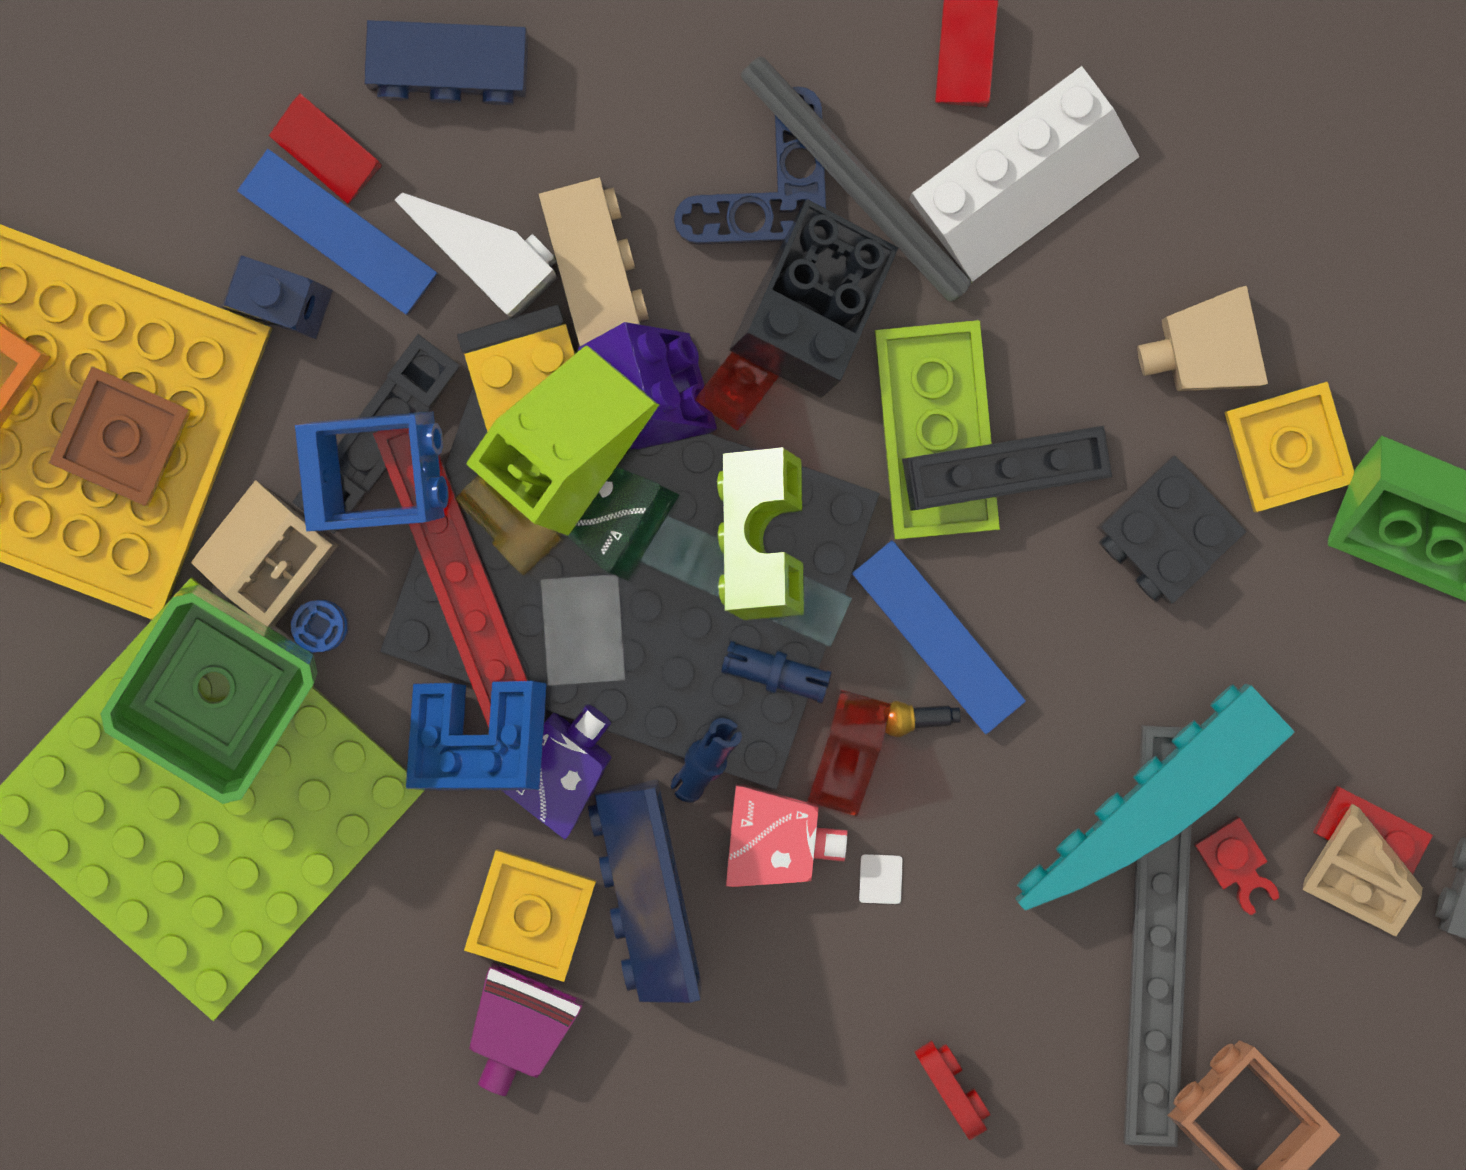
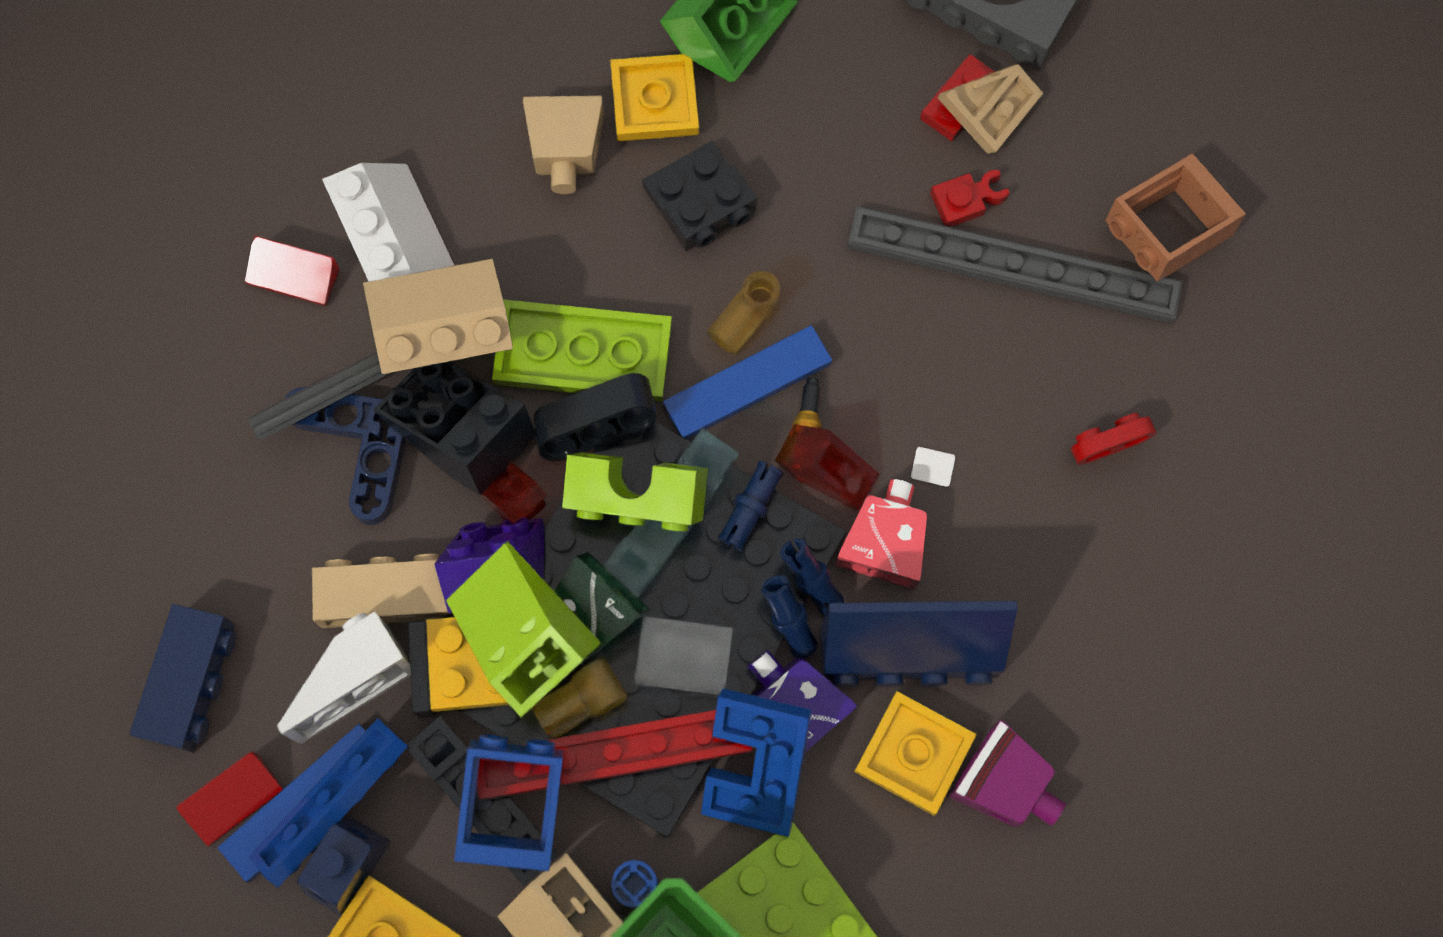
camera: 80 degrees left, 15 degrees down
(339, 263) = (327, 802): none -> blue plate
(653, 742) = (789, 616): none -> dark blue pin
(849, 464) = (594, 417): none -> black beam
(926, 253) = (437, 316): none -> tan slope
(1006, 468) = (624, 301): black tile -> none
(1017, 616) = (744, 314): none -> clear yellow piece
(1168, 795) = (908, 229): teal slope -> none

